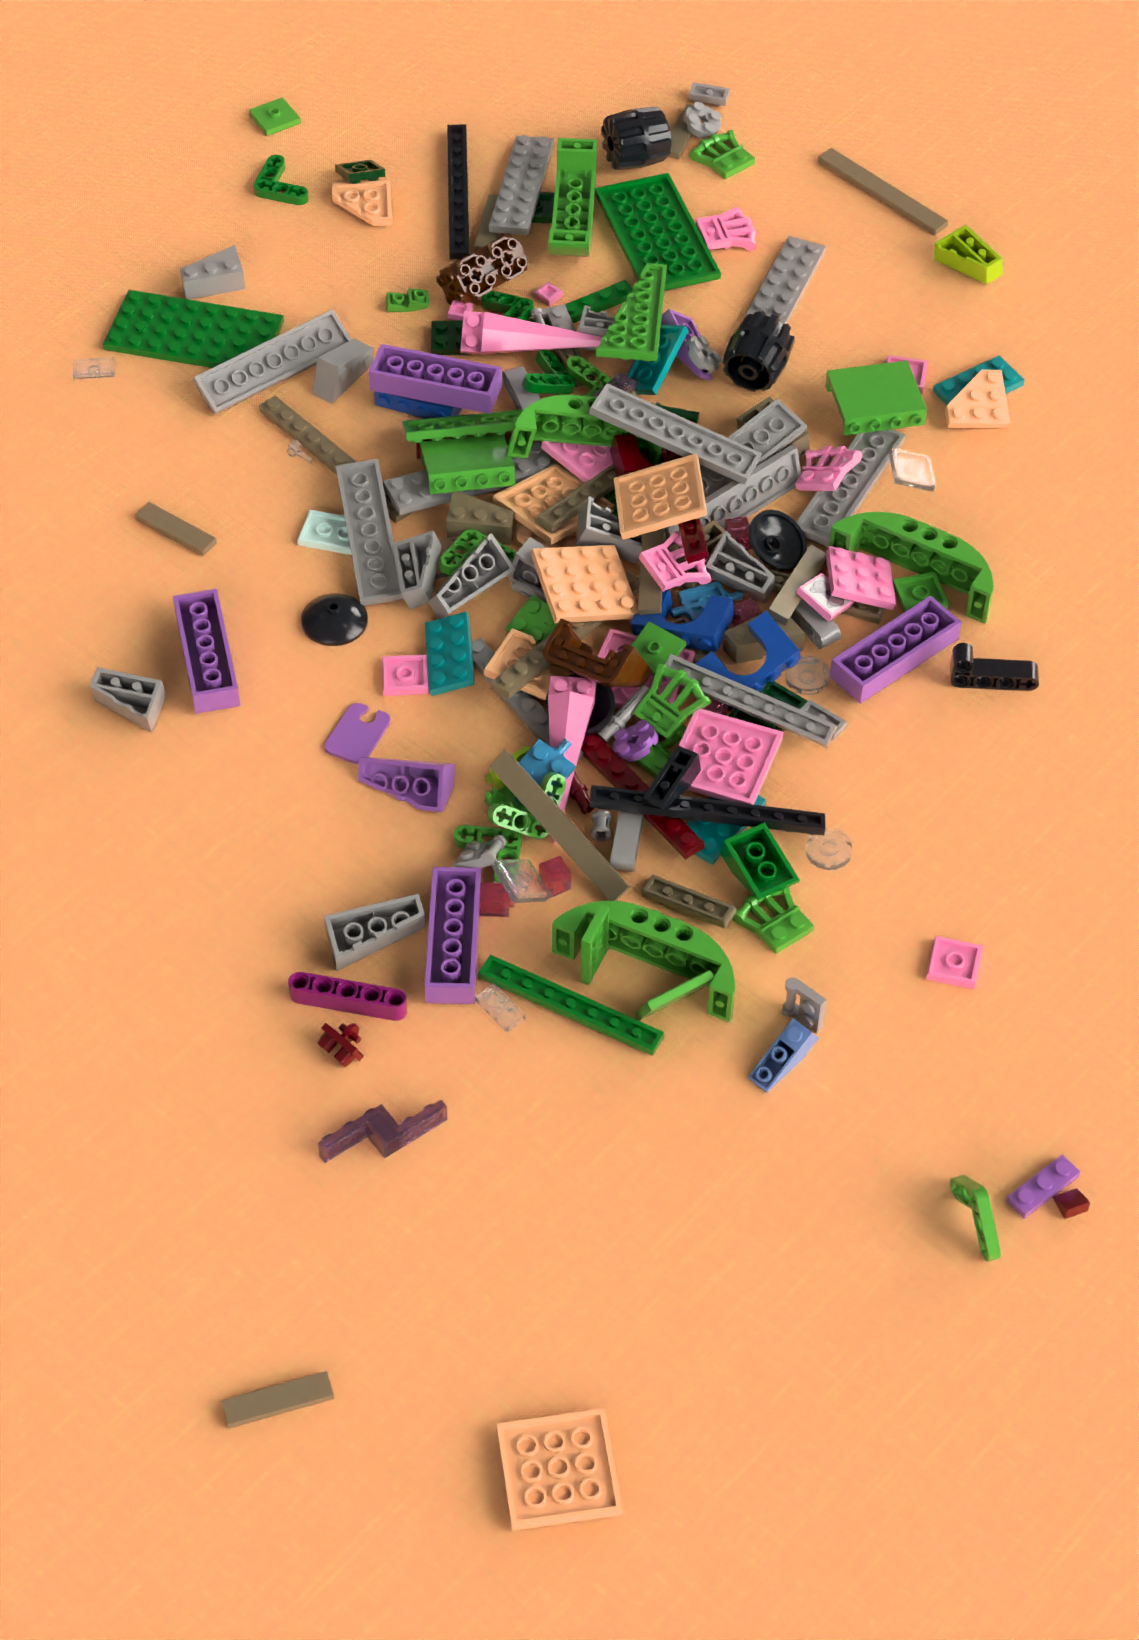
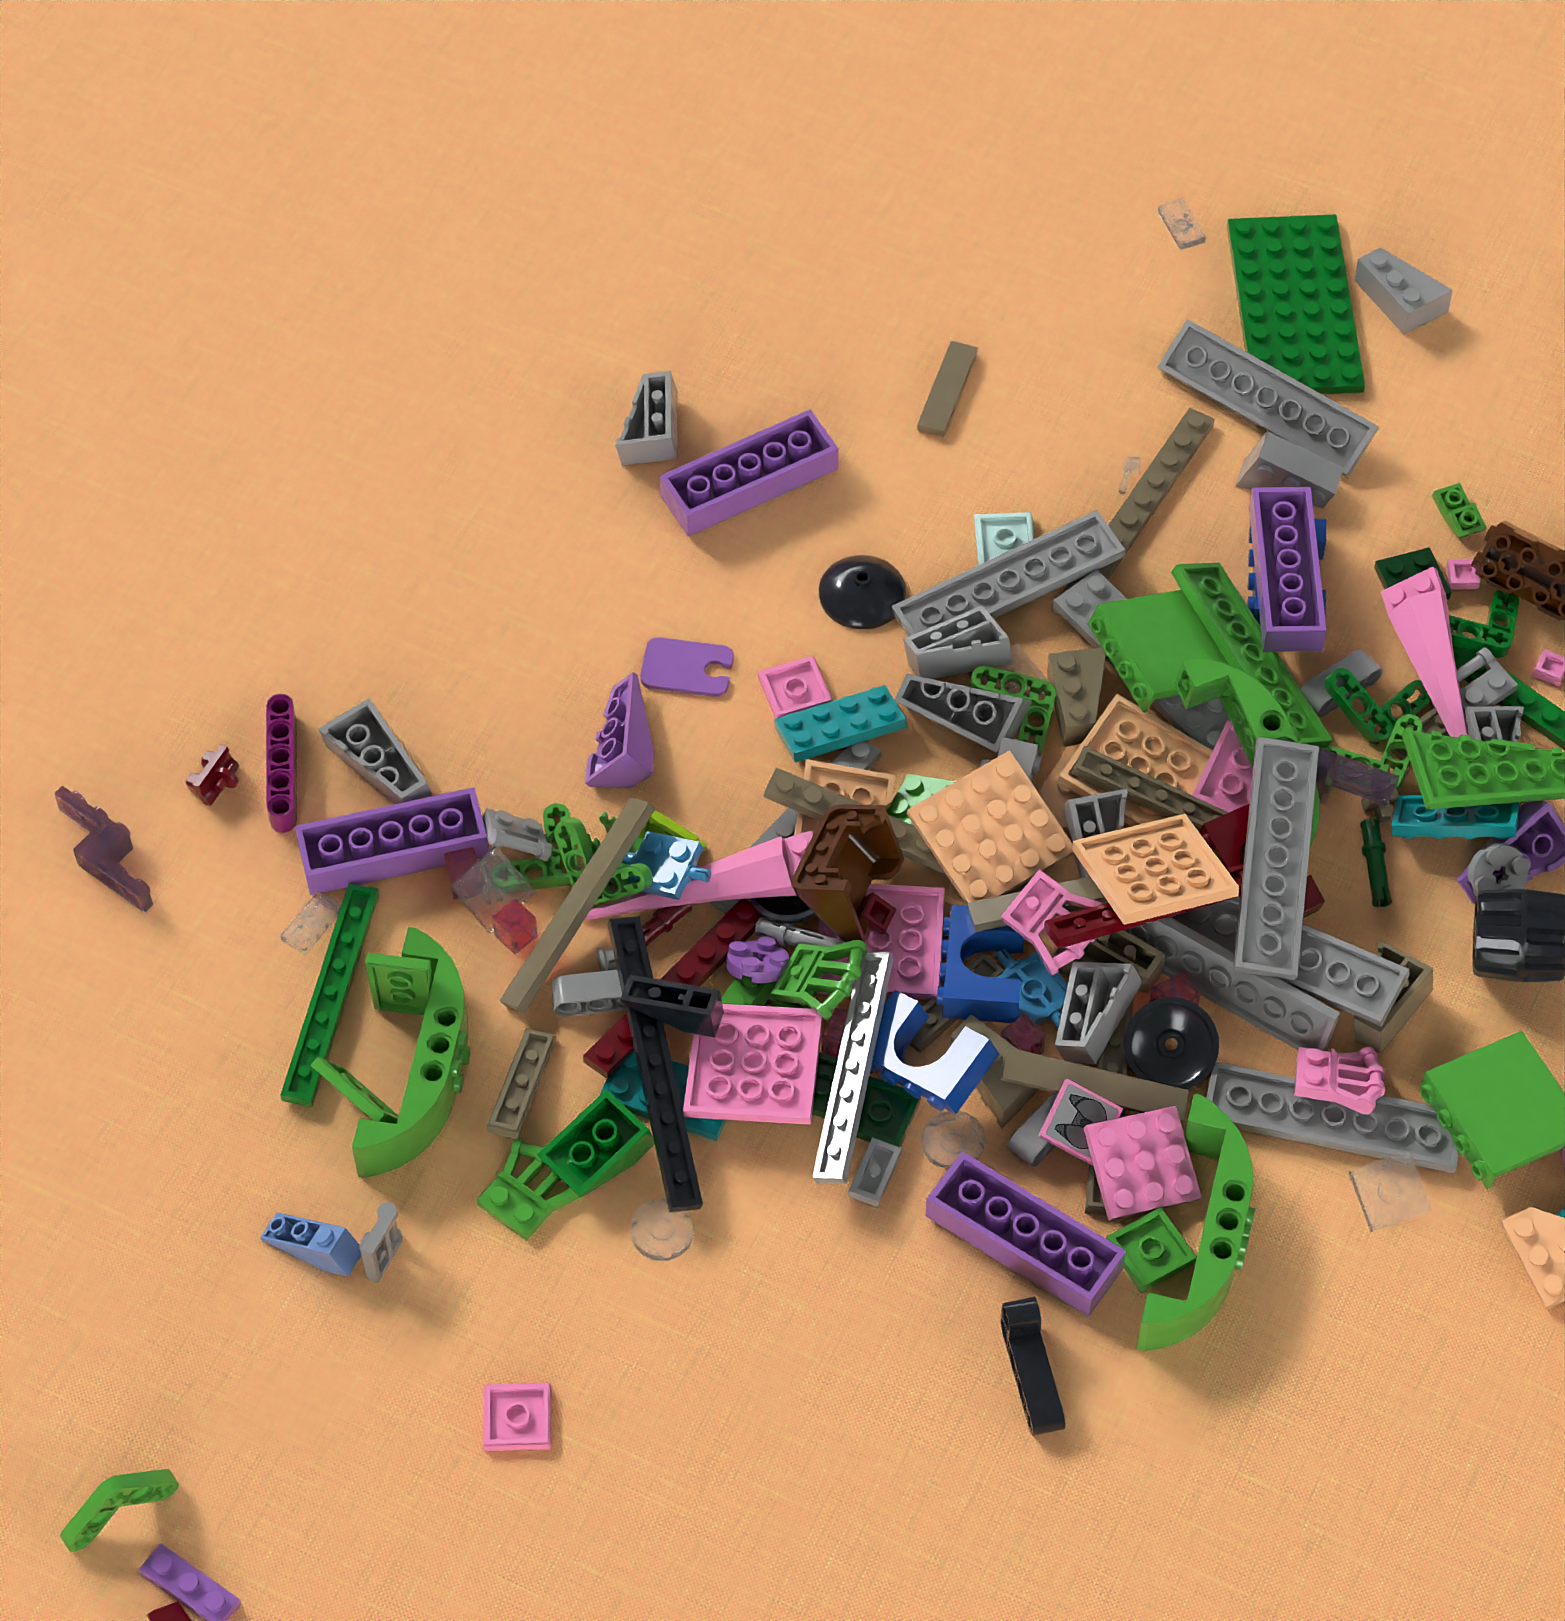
camera: 75 degrees right, 5 degrees up
(656, 645) = (914, 941): bright green plate -> none

